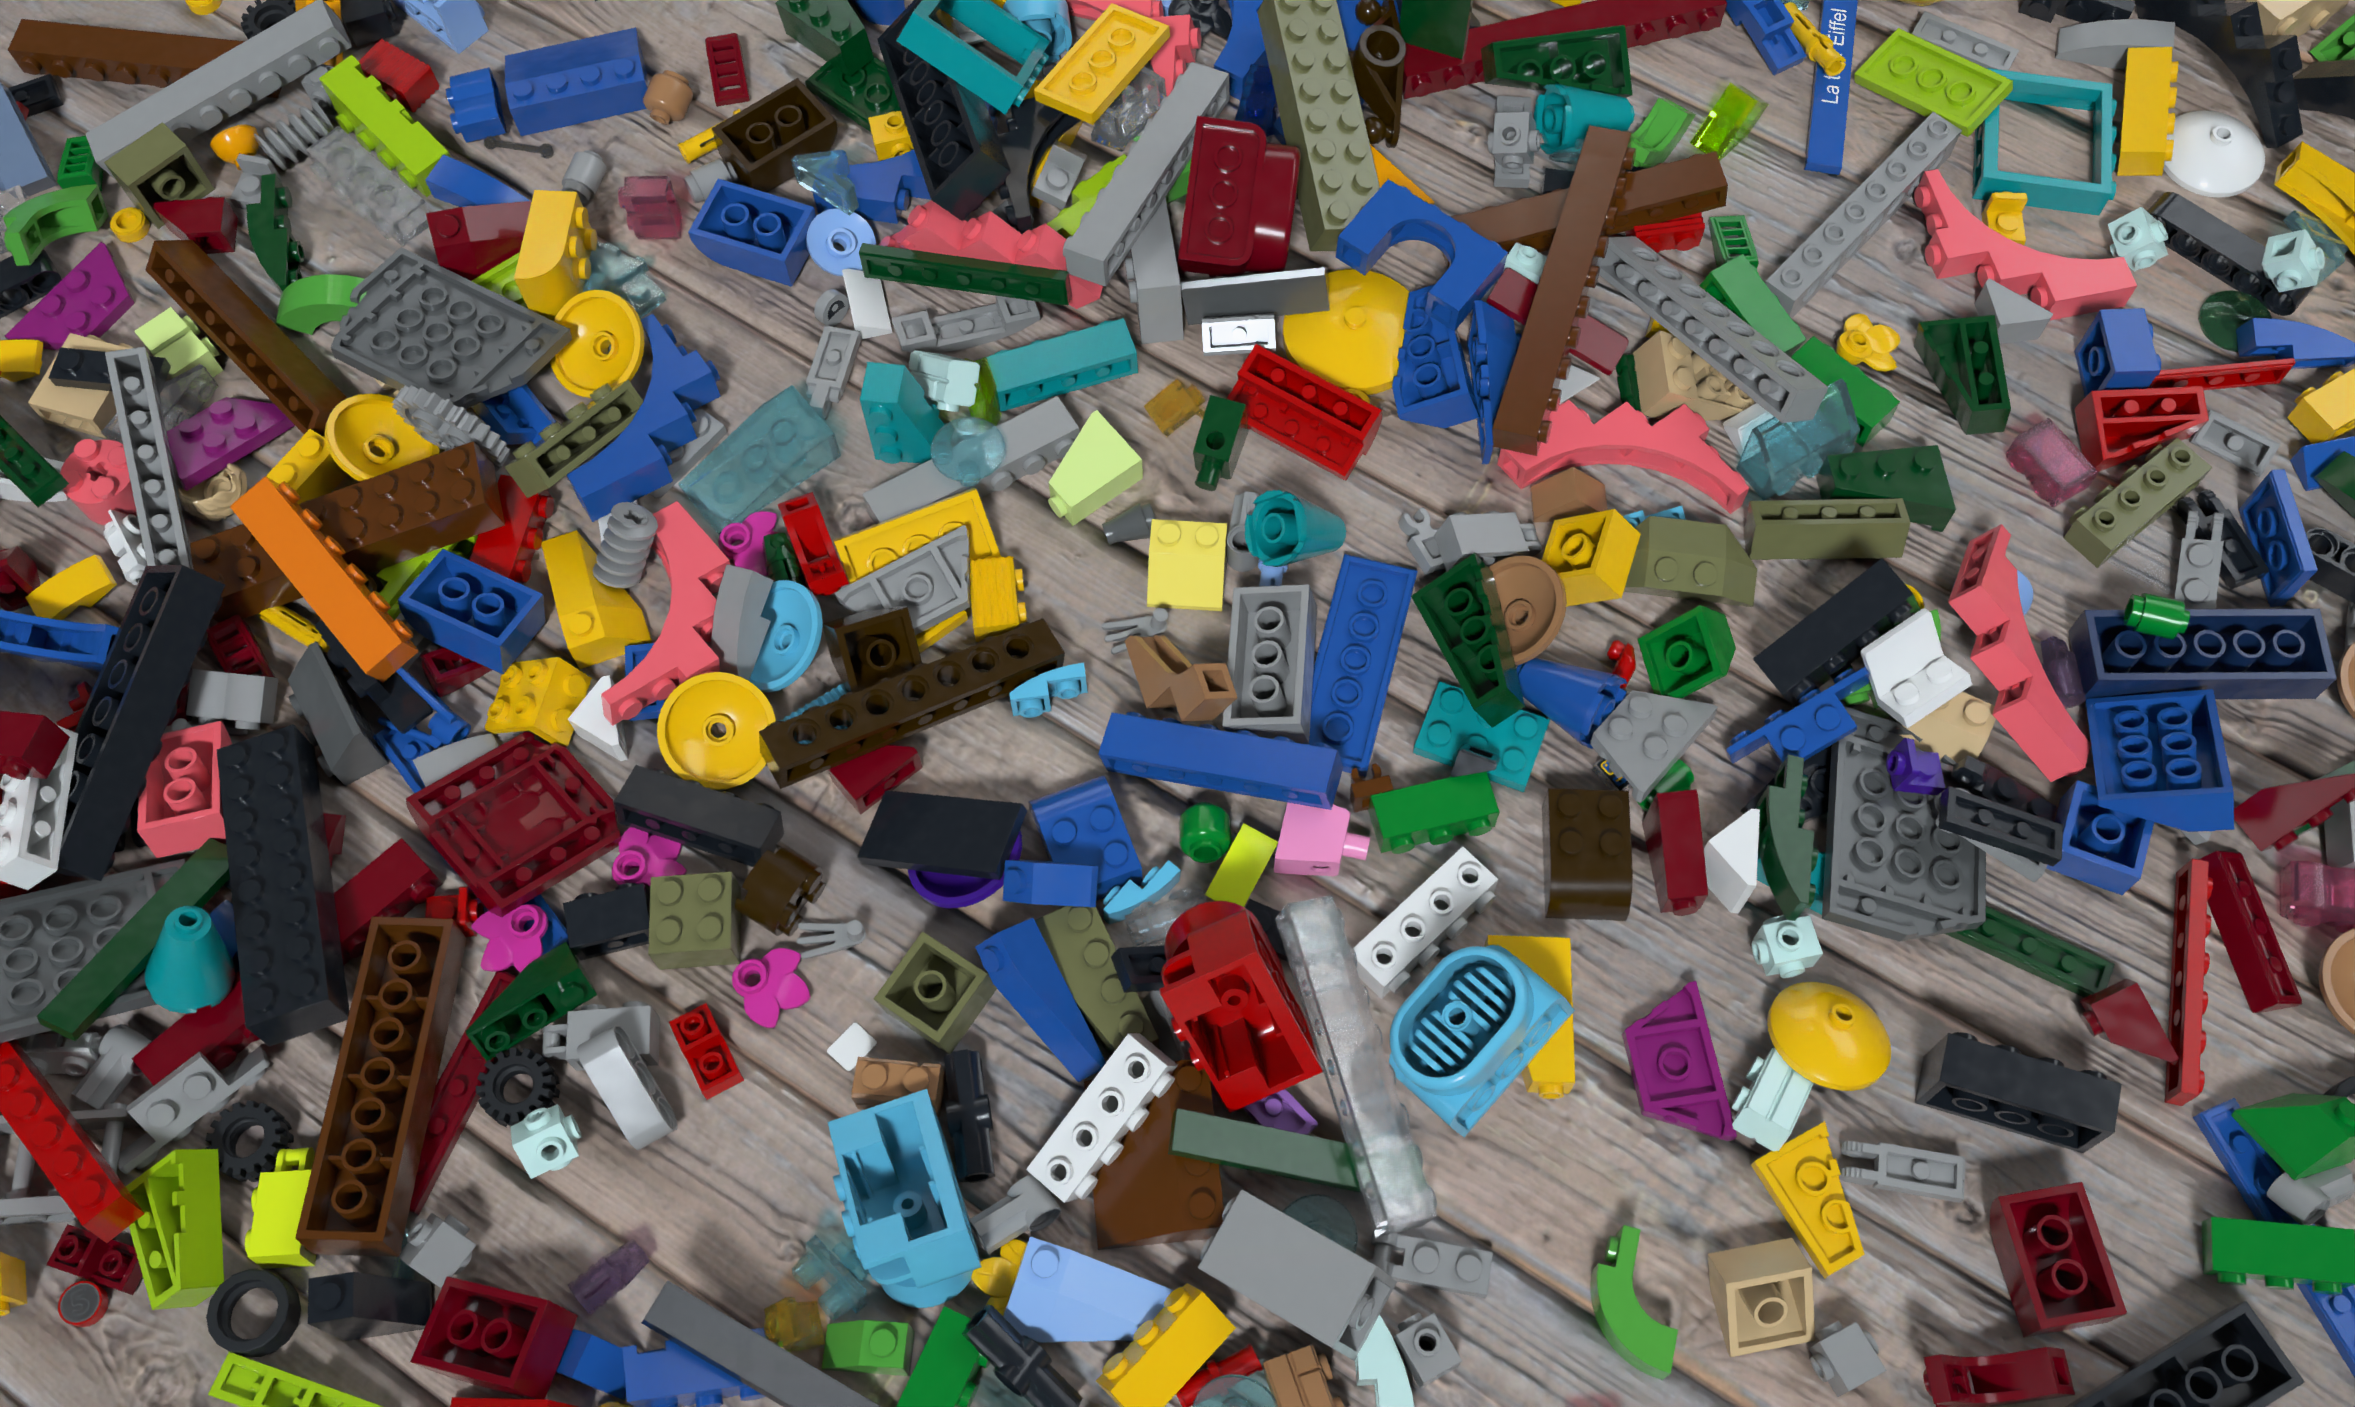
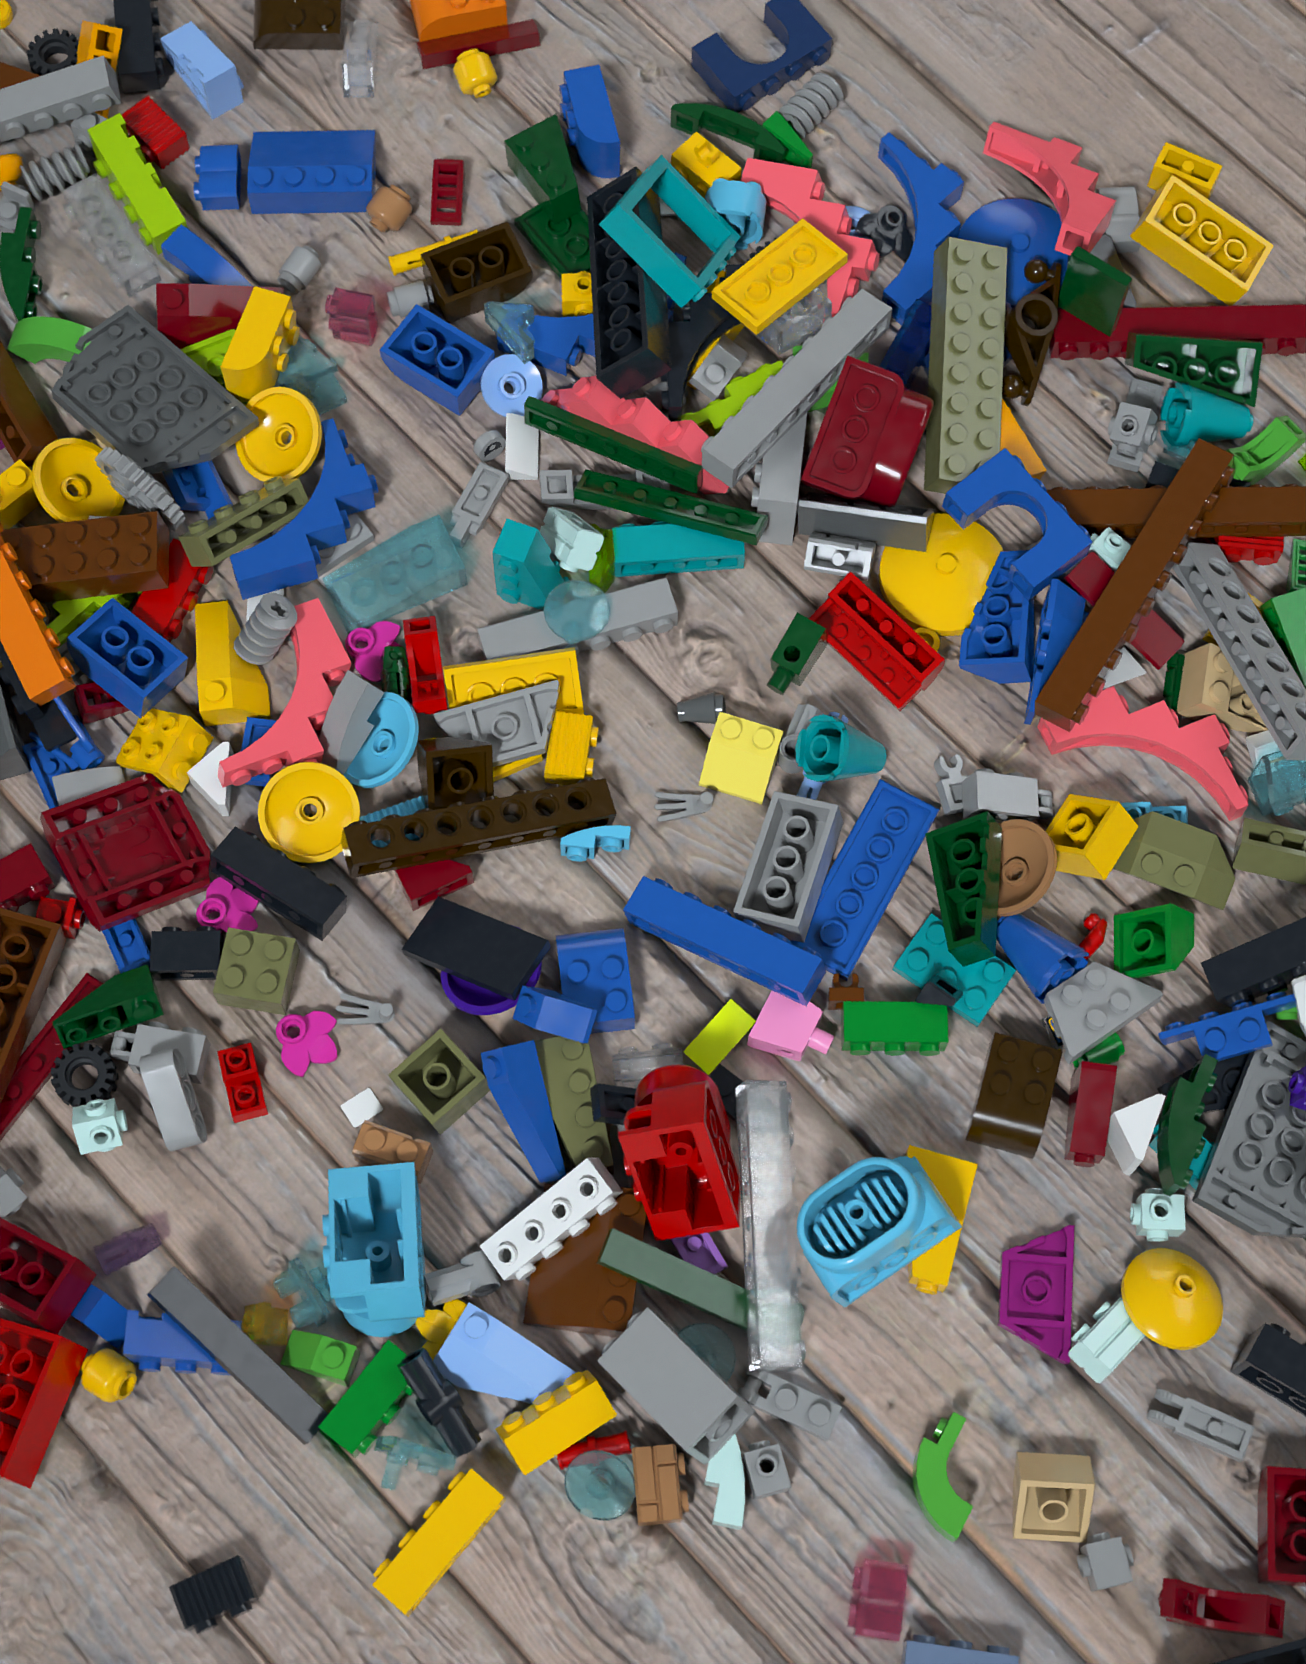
camera: 10 degrees right, 5 degrees up
(508, 940) = (100, 950): dark pink plate -> none
(545, 150) = (271, 233): clear smoke hinge -> none
(780, 889) = (332, 962): dark brown brick -> none
(969, 1116) = (444, 1189): black piece -> none
(1044, 322) = (671, 507): none -> dark green tile
(1093, 471) = (681, 652): yellowish green slope -> none
(1156, 885) = (645, 1032): medium azure slope -> none
(1172, 681) = (701, 858): medium nougat arch -> none
(1175, 406) = (768, 609): clear yellow bracket -> none
(1204, 832) = (696, 998): green head -> none
(1423, 921) = (860, 1119): white brick -> none
(1567, 496) = (1090, 774): medium nougat slope -> none
(1810, 1196) = (1116, 1425): yellow wing -> none

